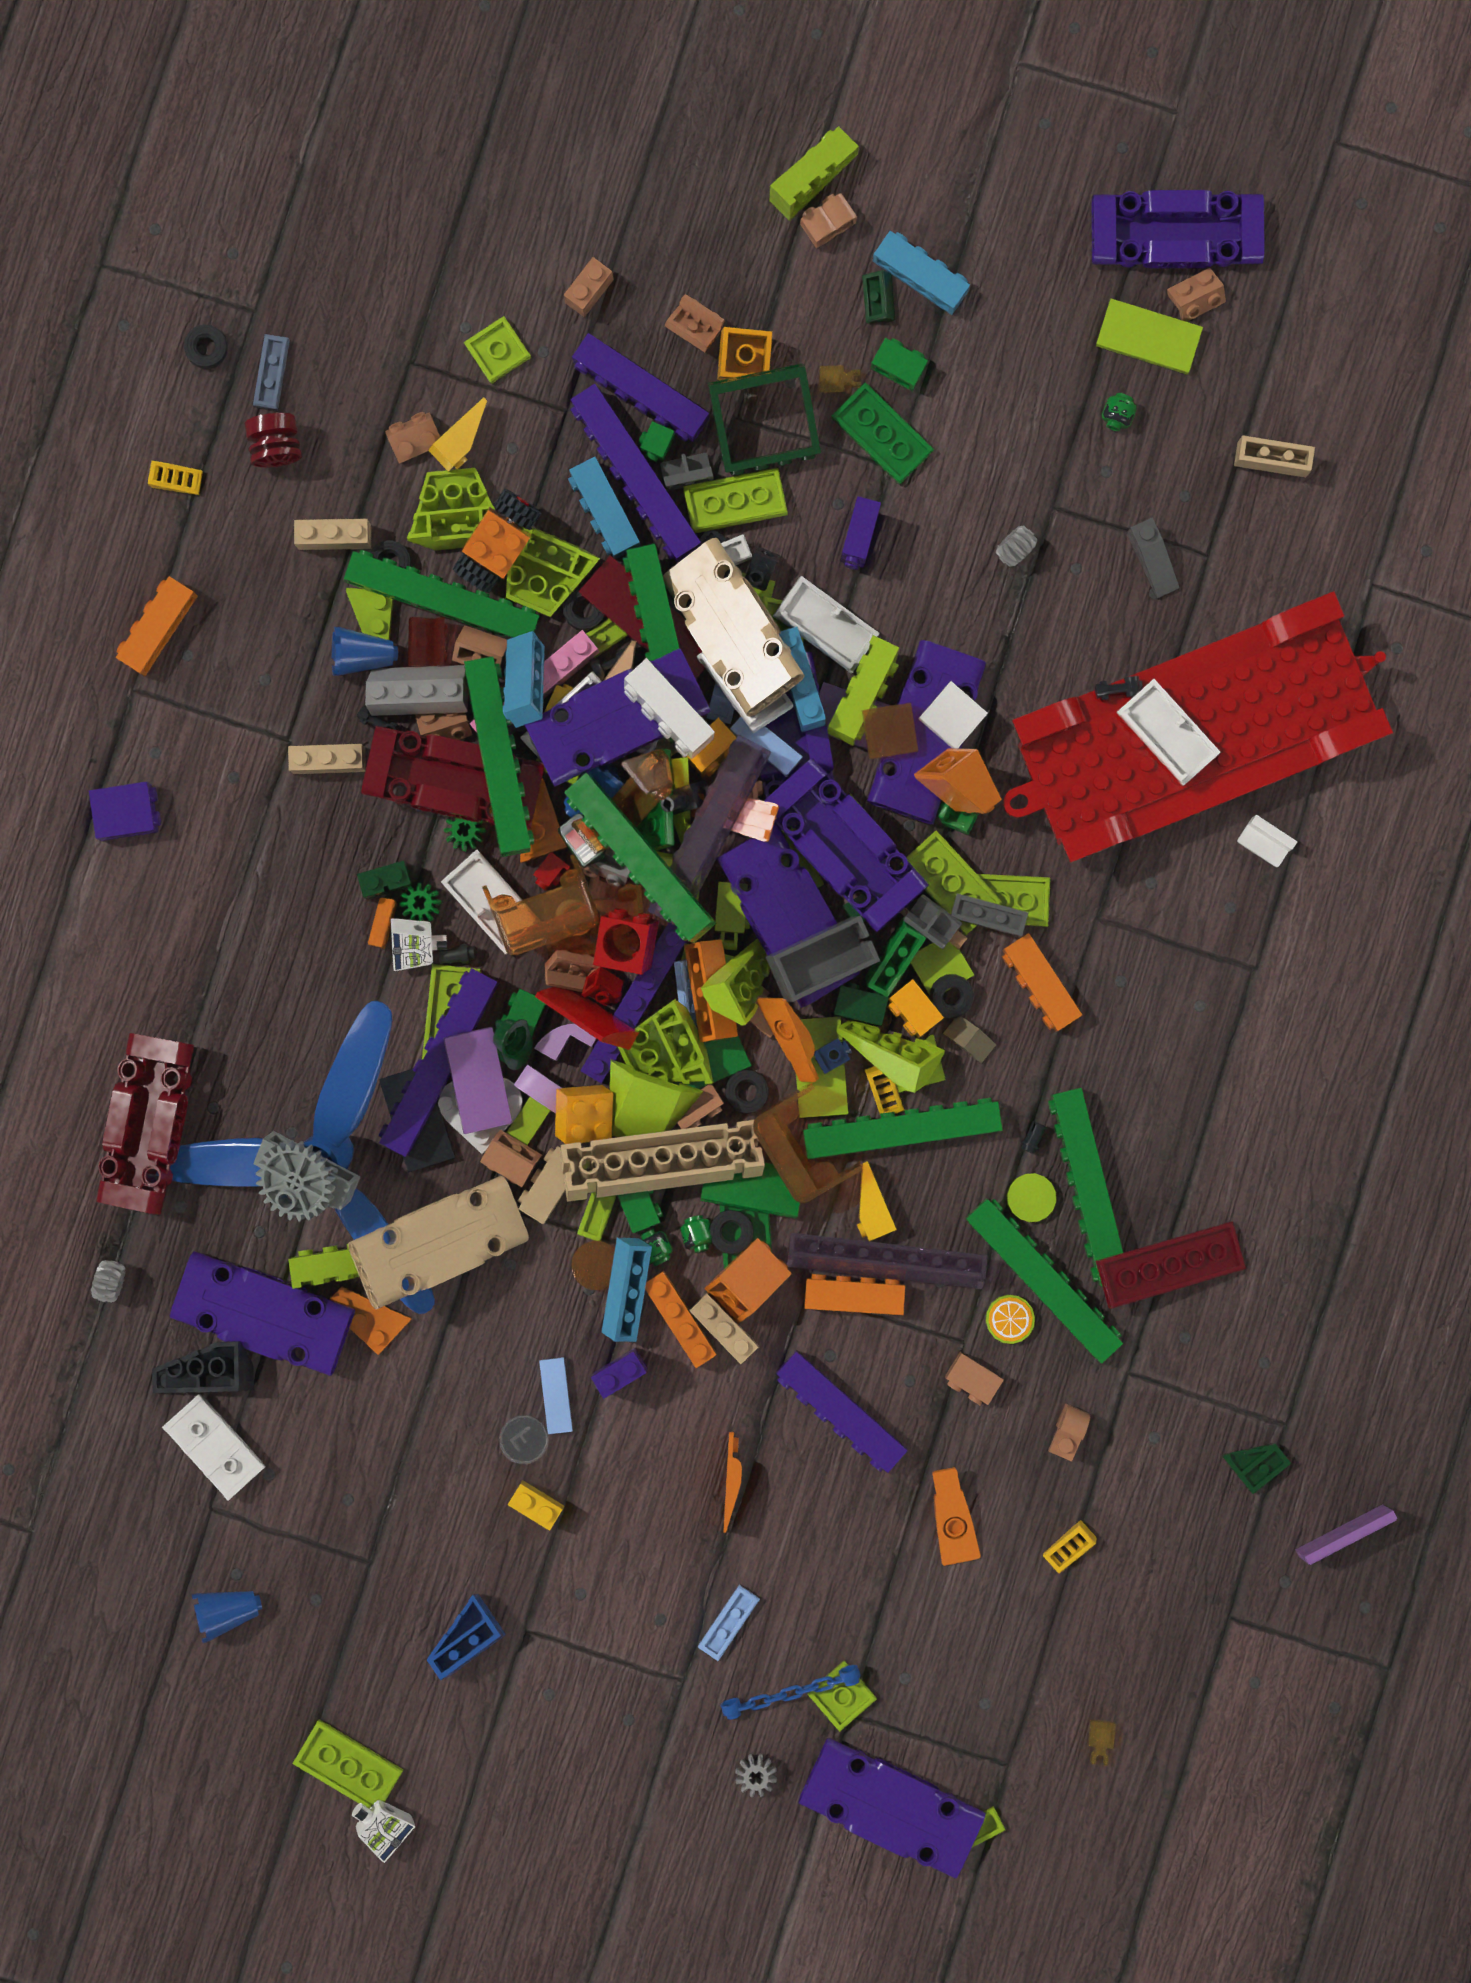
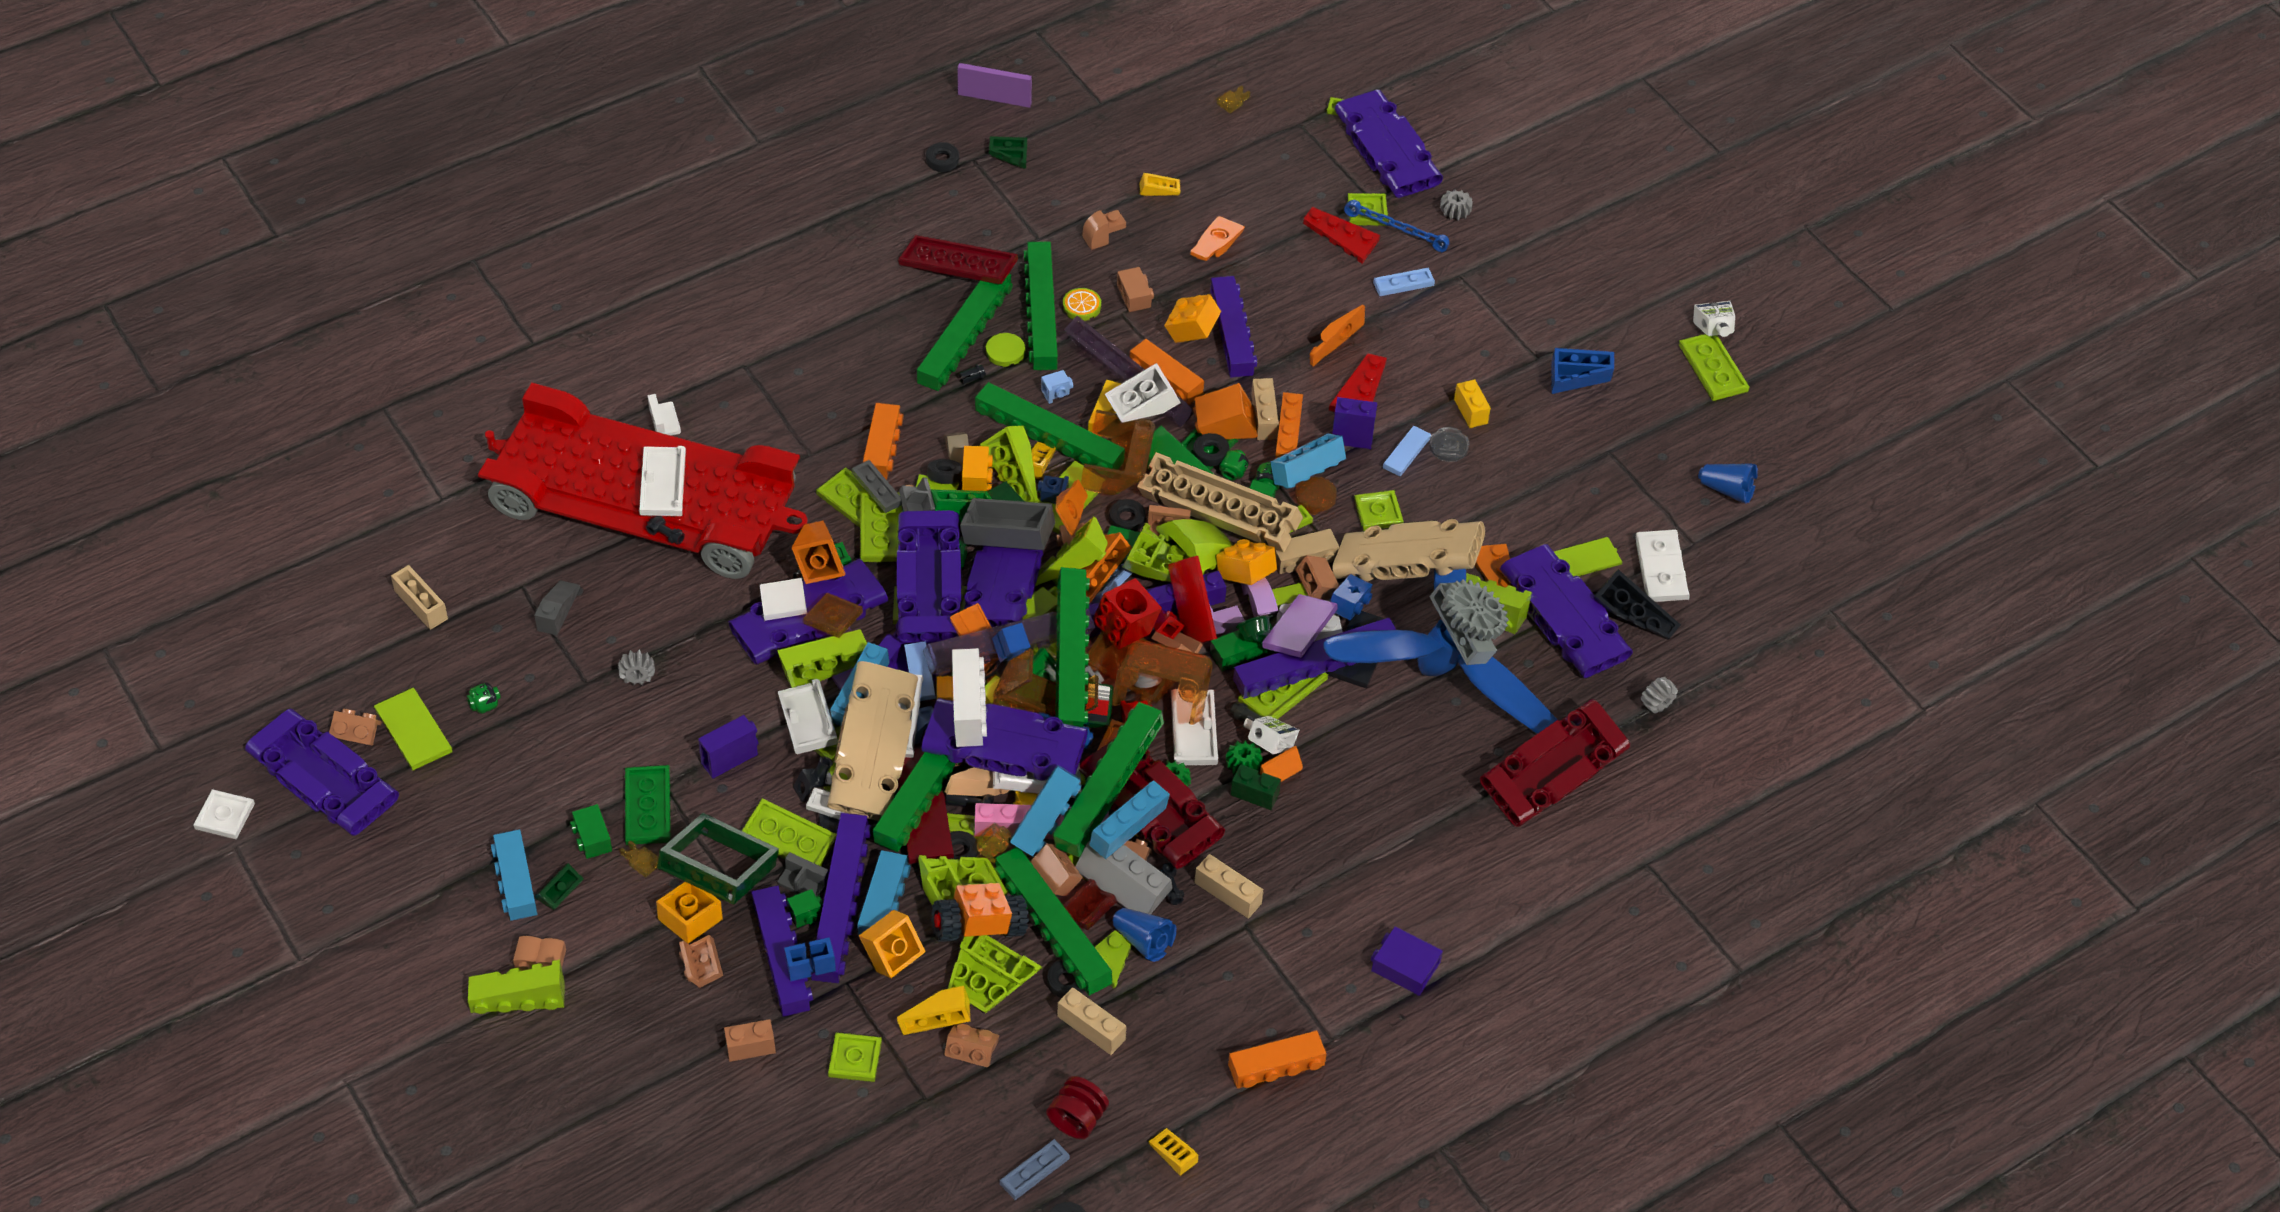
camera: 145 degrees left, 35 degrees down
(294, 1405) = (1590, 556): none -> lime piece
(437, 719) = (1129, 819): none -> dark azure brick
(462, 1173) = (1352, 596): none -> blue brick
(526, 1298) = (1378, 509): none -> lime tile
(549, 459) = (892, 943): none -> light orange brick
(550, 635) = (993, 841): none -> clear yellow brick
(600, 371) = (821, 959): none -> blue piece
(658, 1435) = (1364, 380): none -> red wing
(688, 807) = (1011, 642): none -> blue piece
(830, 1639) = (1352, 238): none -> red wing
(831, 1220) = (1143, 395): none -> white slope
(880, 1379) = (1192, 318): none -> light orange brick
(941, 1189) = (1056, 385): none -> light blue brick
(1217, 129) = (224, 814): none -> white tile
(1330, 1402) = (942, 165): none -> black tyre

